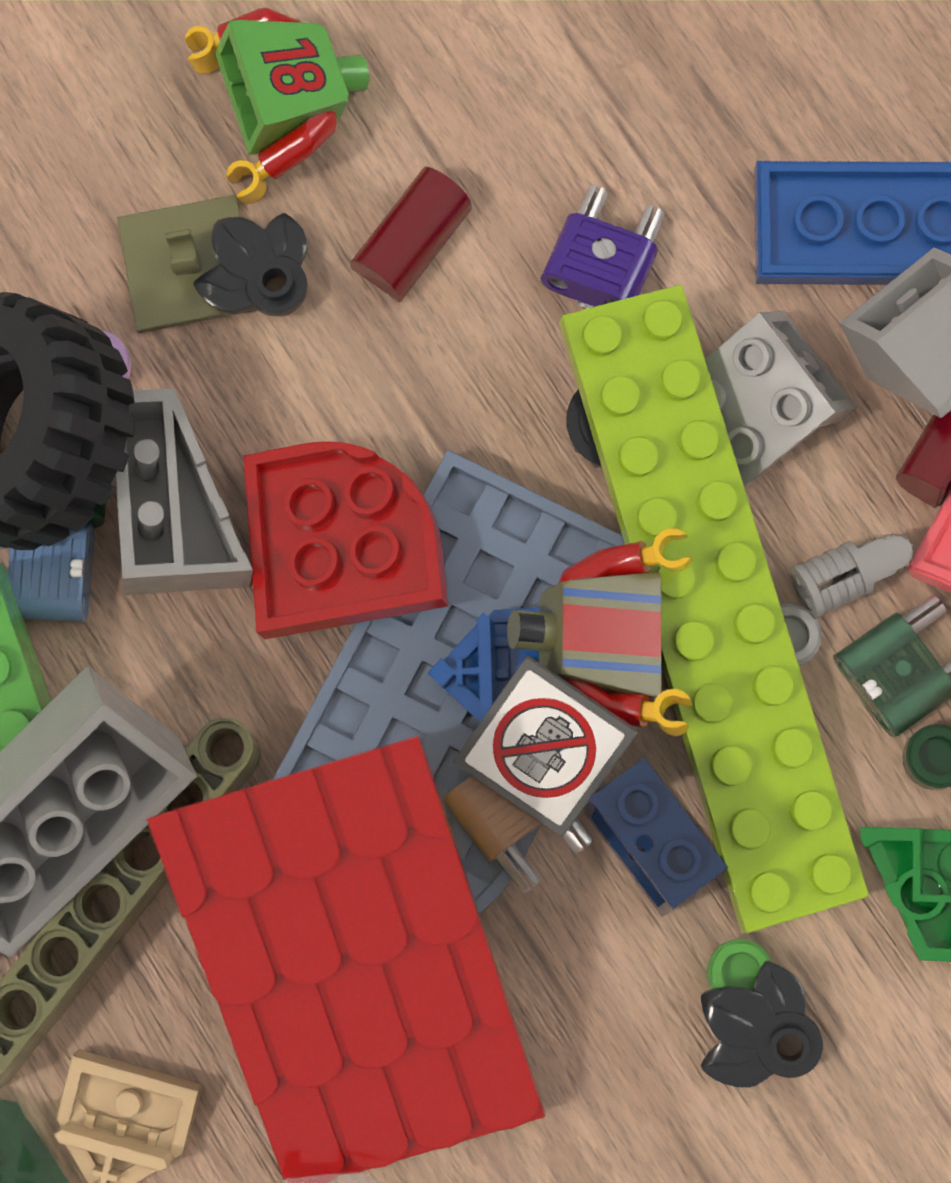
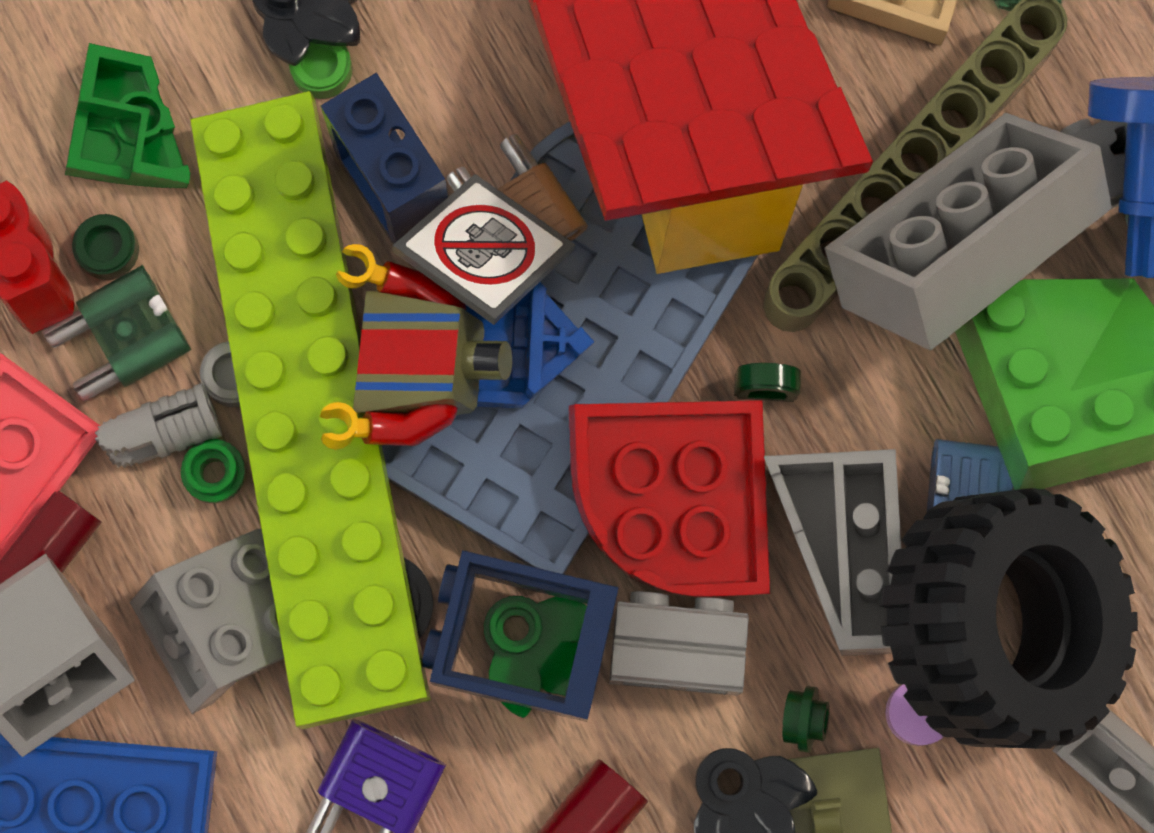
camera: 175 degrees right, 0 degrees up
(206, 344) = (805, 718): none -> dark green plate
(252, 661) = (767, 382): none -> dark green tile
(328, 398) = (679, 645): none -> light grey brick
(457, 387) = (544, 654): none -> green plate
(484, 330) = (457, 592): none -> dark blue window
(802, 519) = (196, 461): none -> green plate

